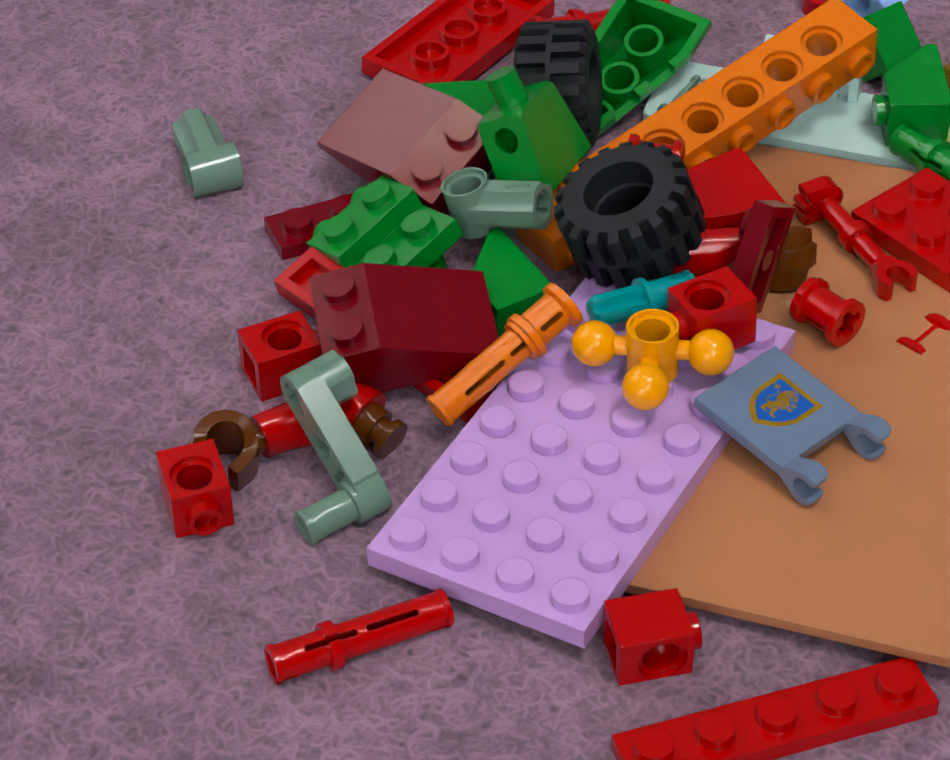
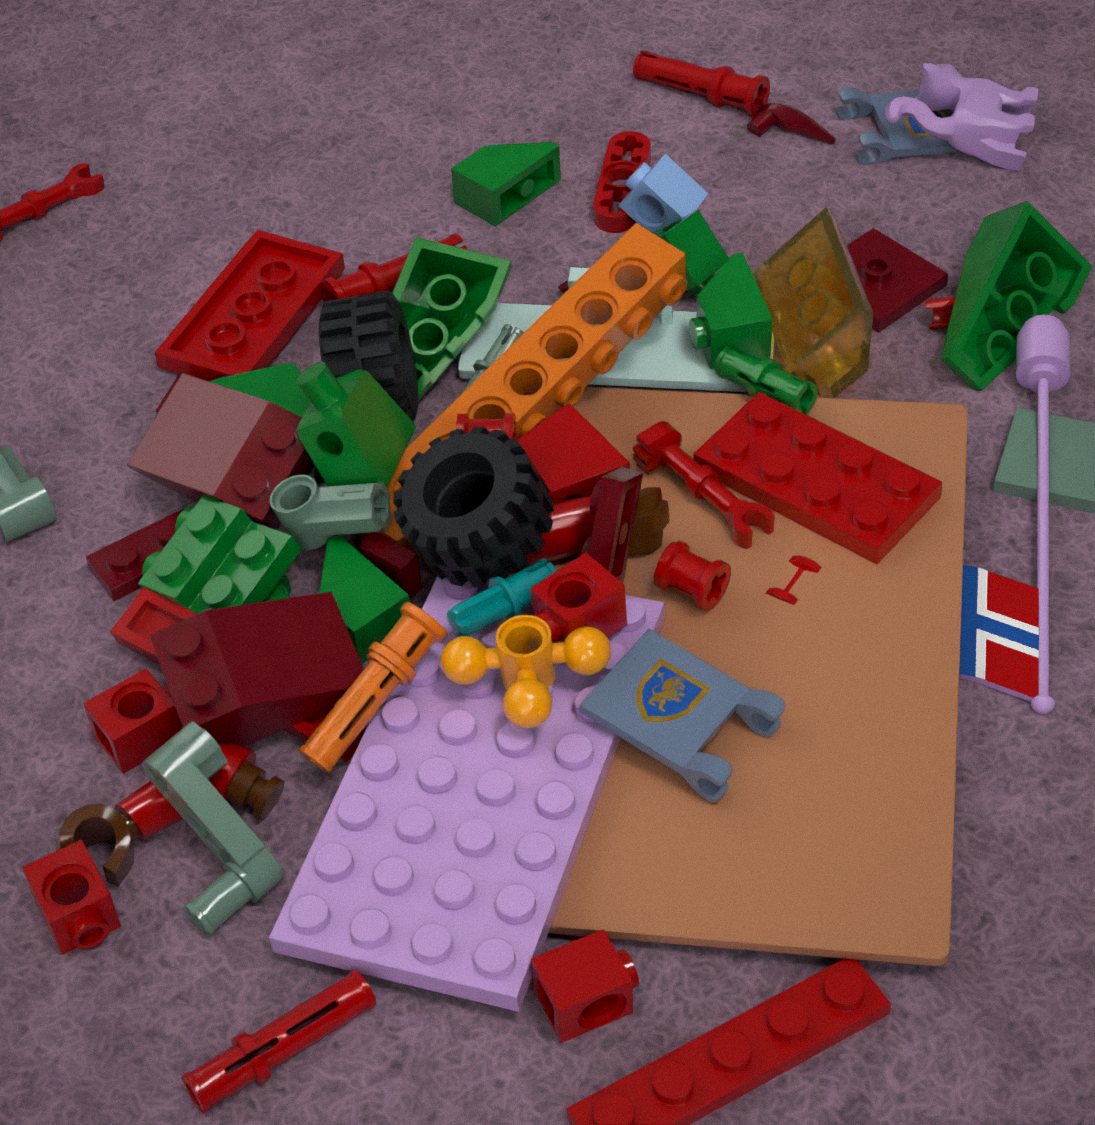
camera: 10 degrees left, 5 degrees up
(548, 258) = (394, 561): none -> dark red tile

